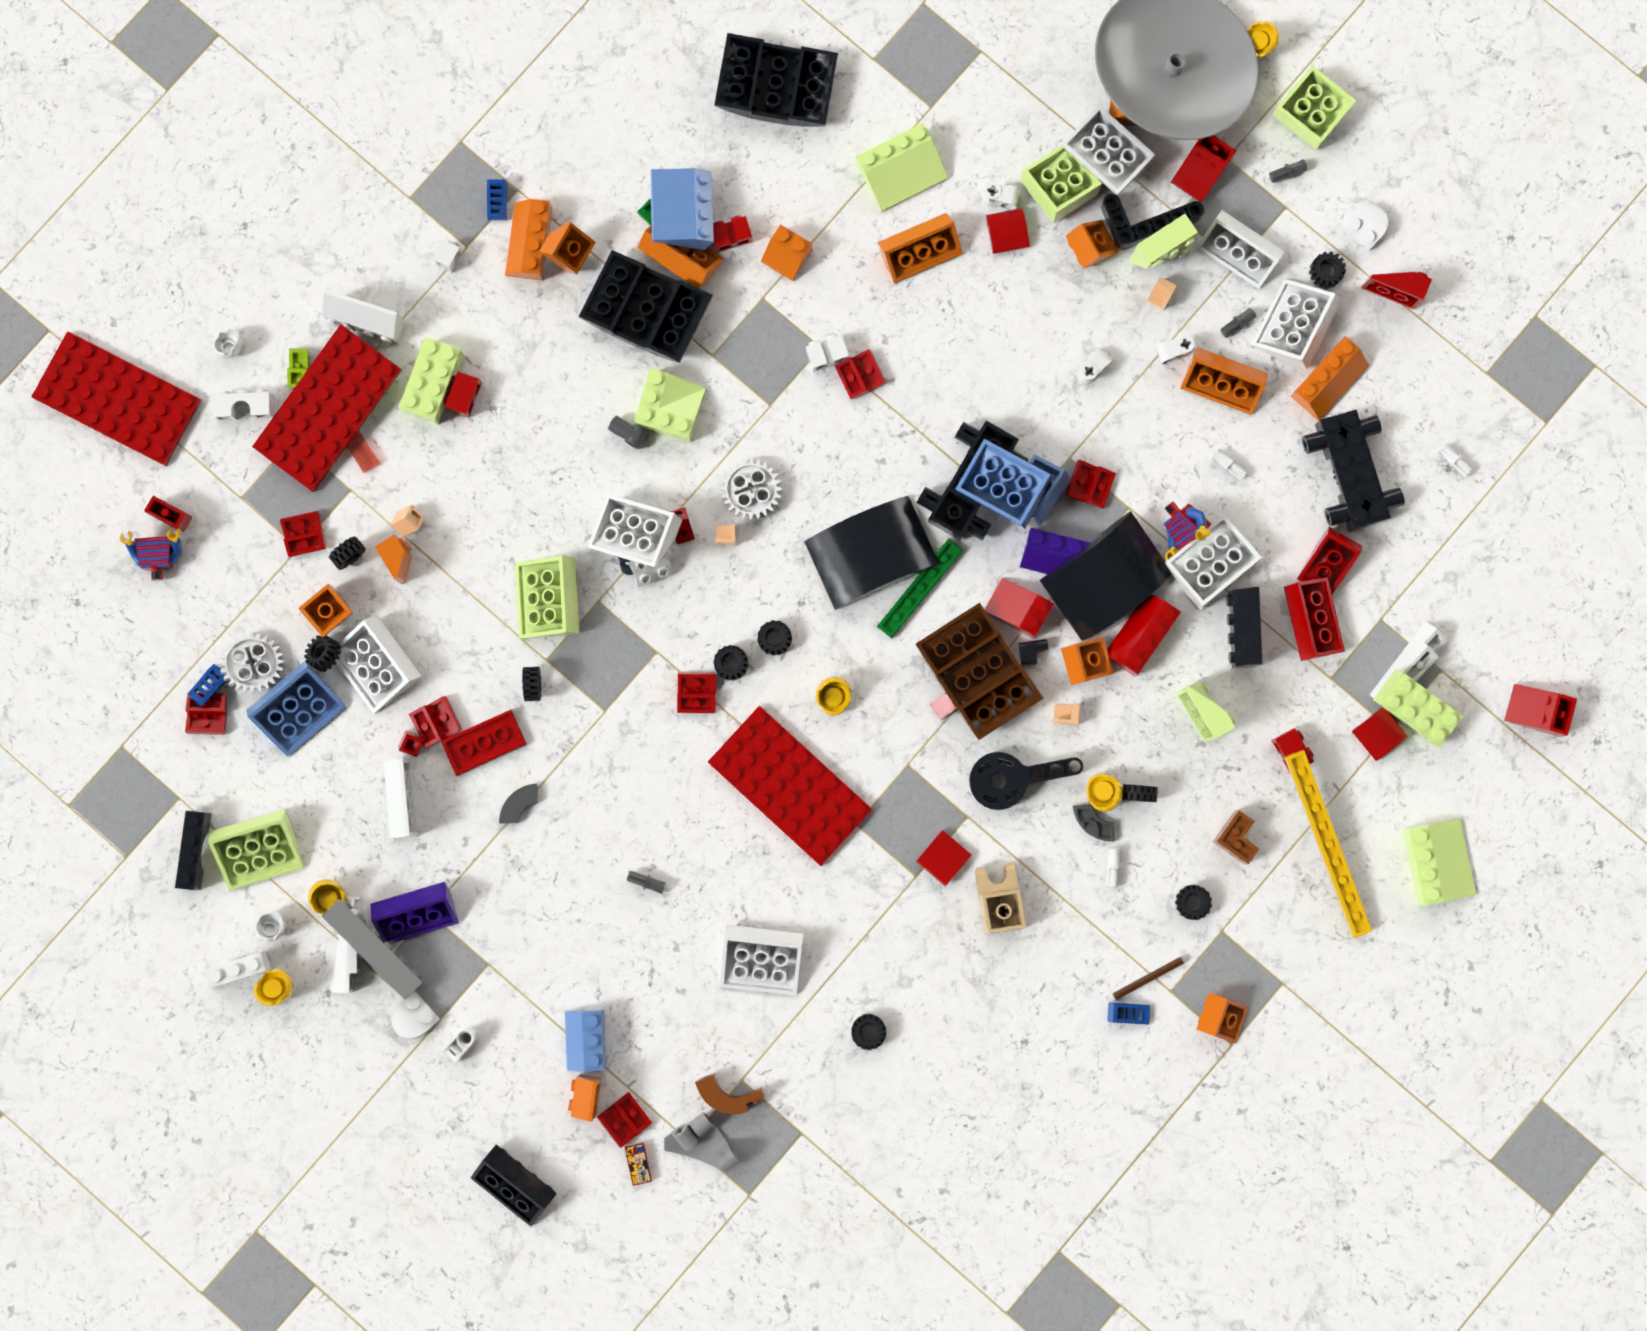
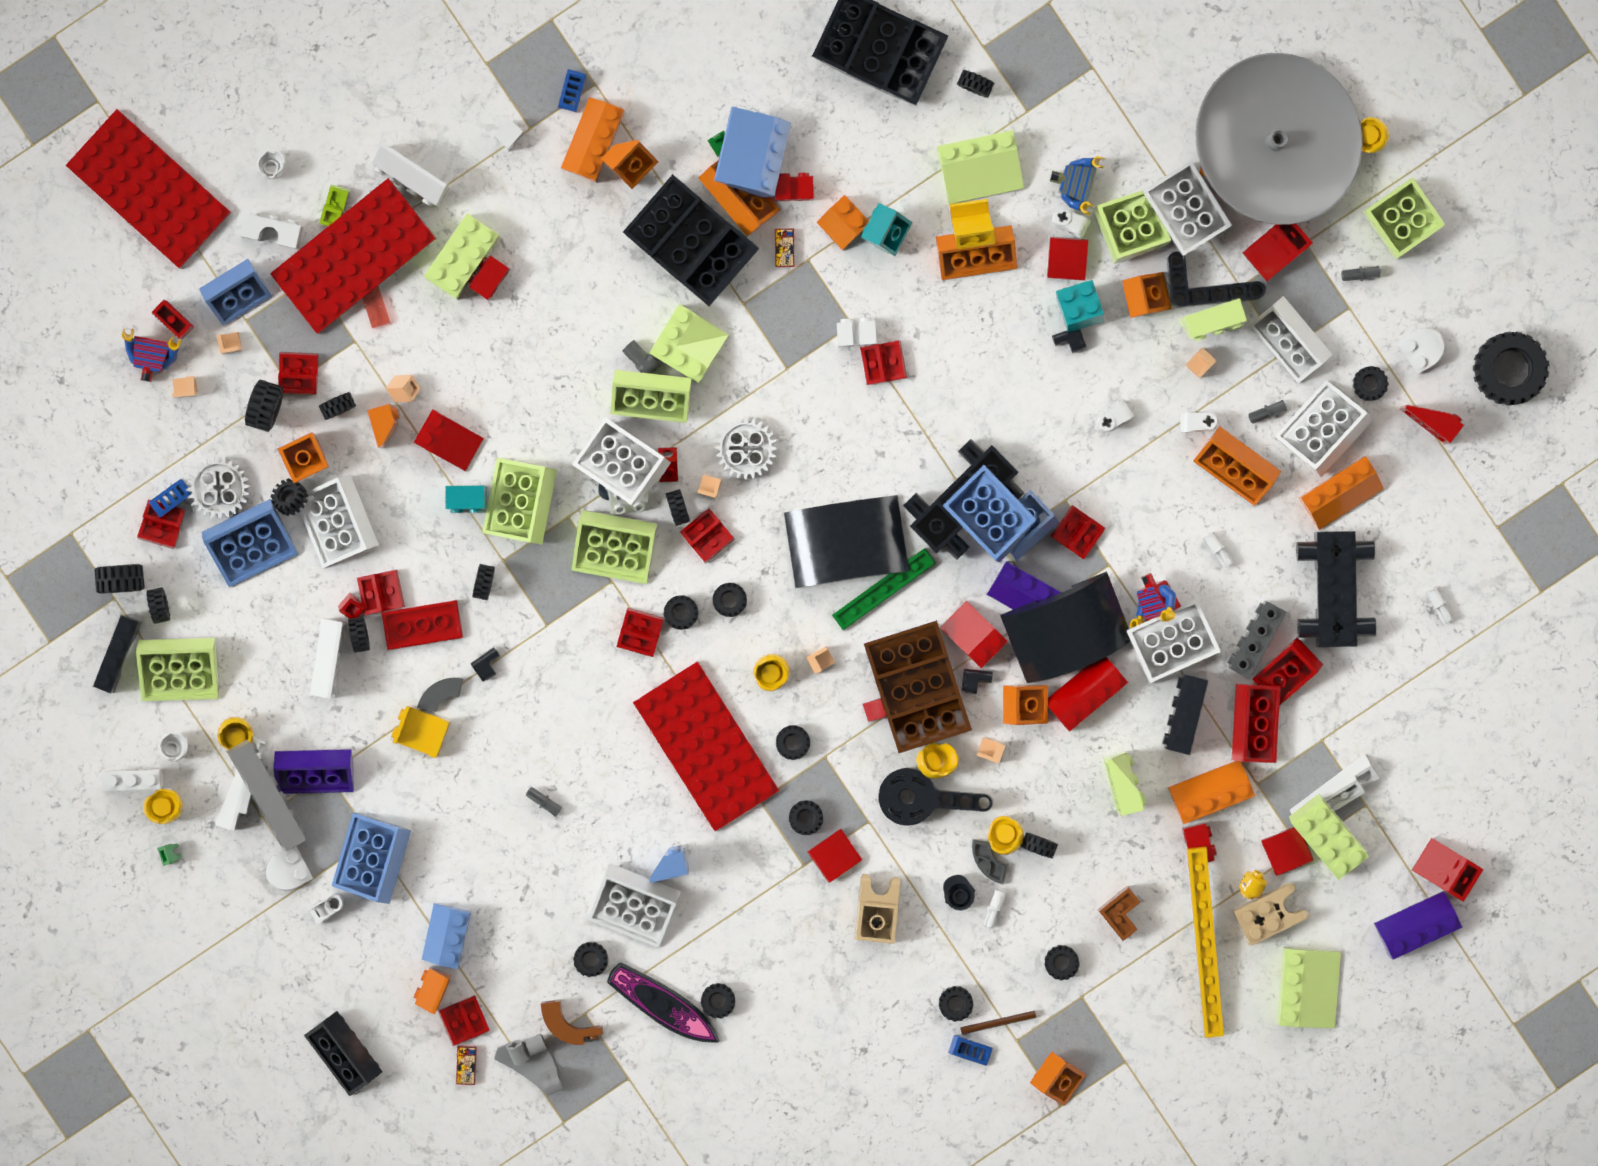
camera: 10 degrees right, 5 degrees up
(175, 775) = (119, 578): none -> black tyre
(197, 576) = (185, 387): none -> light nougat panel
(220, 792) = (158, 605): none -> black tyre
(223, 473) = (235, 292): none -> medium blue slope
(229, 523) = (229, 343): none -> light nougat panel
(275, 570) = (264, 405): none -> black tyre
(290, 1034) = (167, 854): none -> green tile
(423, 767) = (358, 634): none -> black tyre
(463, 557) = (448, 440): none -> red slope
(492, 984) = (371, 858): none -> medium blue slope
(493, 607) = (466, 497): none -> teal brick
(508, 846) = (420, 731): none -> yellow panel
(553, 765) = (484, 666): none -> black piece
(646, 462) = (650, 396): none -> yellowish green brick
(649, 617) = (614, 546): none -> yellowish green slope
(700, 562) = (677, 507): none -> black tyre
(736, 582) = (707, 535): none -> red slope
(736, 1036) = (599, 951): none -> black tyre
(737, 292) = (784, 247): none -> tile
(786, 909) = (671, 865): none -> medium blue slope
(814, 1050) = (662, 1004): none -> black piece
(829, 246) = (886, 229): none -> teal brick
(873, 770) = (804, 739): none -> black tyre
(875, 90) = (975, 83): none -> black tyre
(877, 672) = (820, 660): none -> light nougat panel
(908, 220) = (972, 224): none -> yellow panel
(917, 828) = (806, 829): none -> black tyre
(997, 156) = (1077, 182): none -> torso
(1018, 737) = (937, 760): none -> yellow piece
(1032, 269) = (1080, 306): none -> teal brick
(1033, 302) = (1072, 338): none -> black piece
(1074, 861) = (958, 892): none -> black hat
(1090, 967) = (955, 1015): none -> black tyre
(1290, 697) = (1211, 791): none -> orange slope
(1291, 539) = (1257, 639): none -> dark grey brick
(1356, 775) = (1252, 884): none -> yellow head
(1384, 797) = (1272, 910): none -> tan brick
(1470, 199) = (1536, 362): none -> black tyre
(1527, 772) = (1417, 925): none -> dark purple slope

